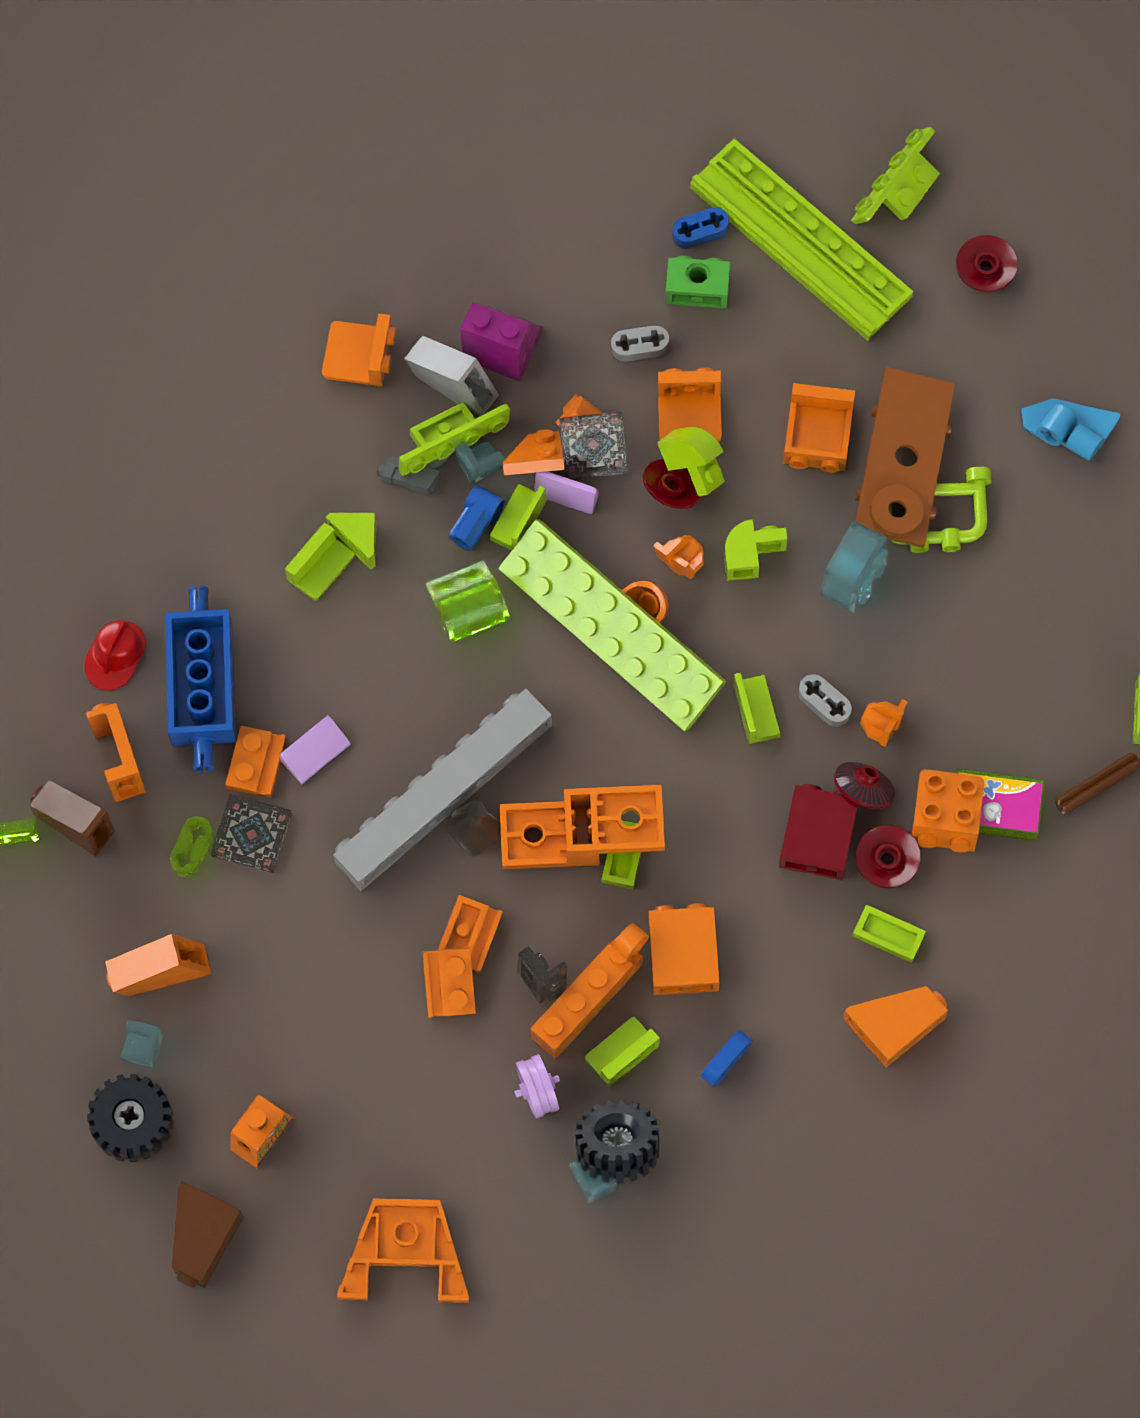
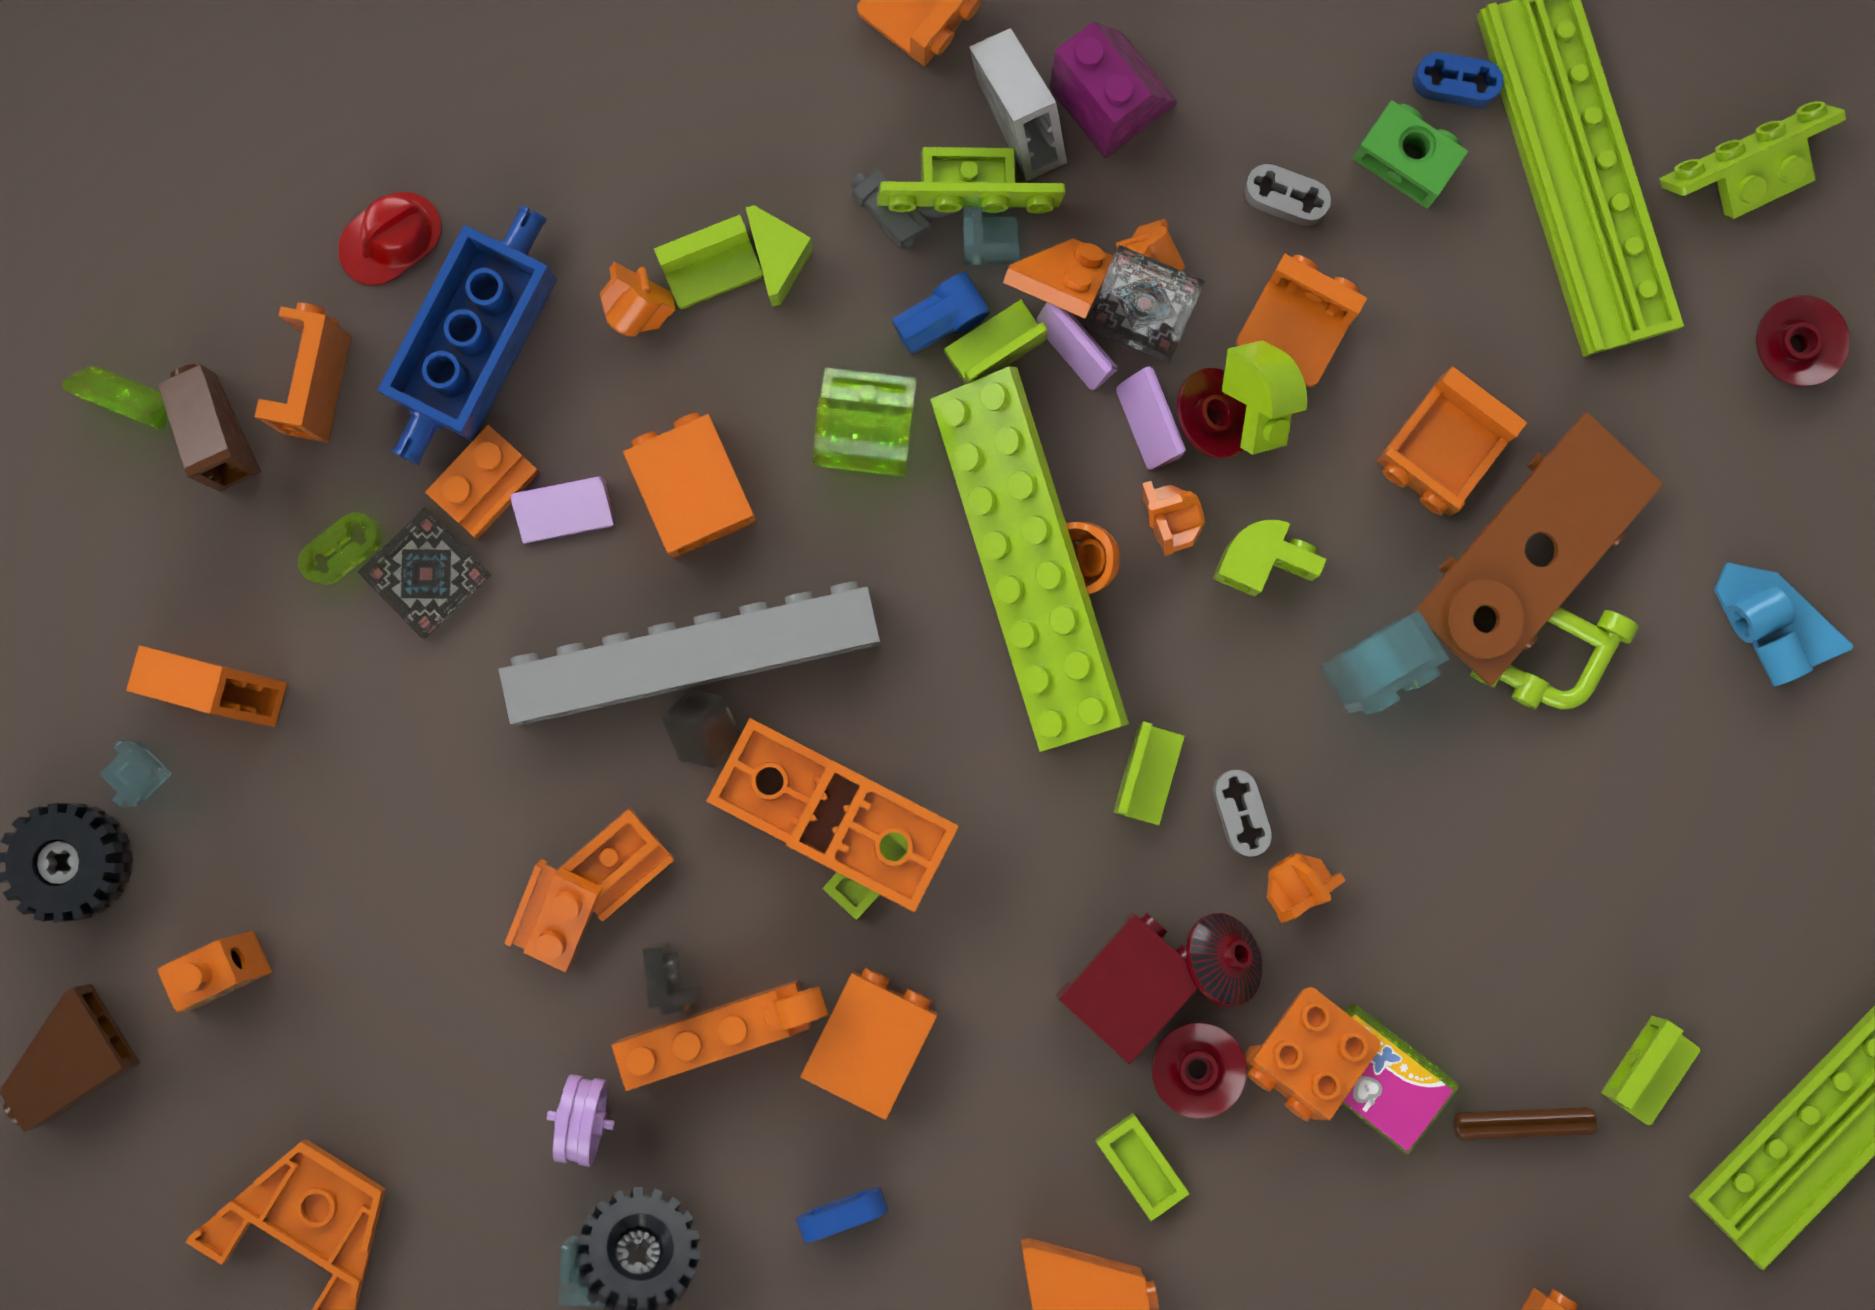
camera: 25 degrees right, 15 degrees up
(289, 608) = (634, 302): none -> orange piece
(384, 693) = (689, 484): none -> orange brick
(622, 1051) = (719, 1125): lime panel -> none
(636, 509) = (1150, 419): none -> lavender slope

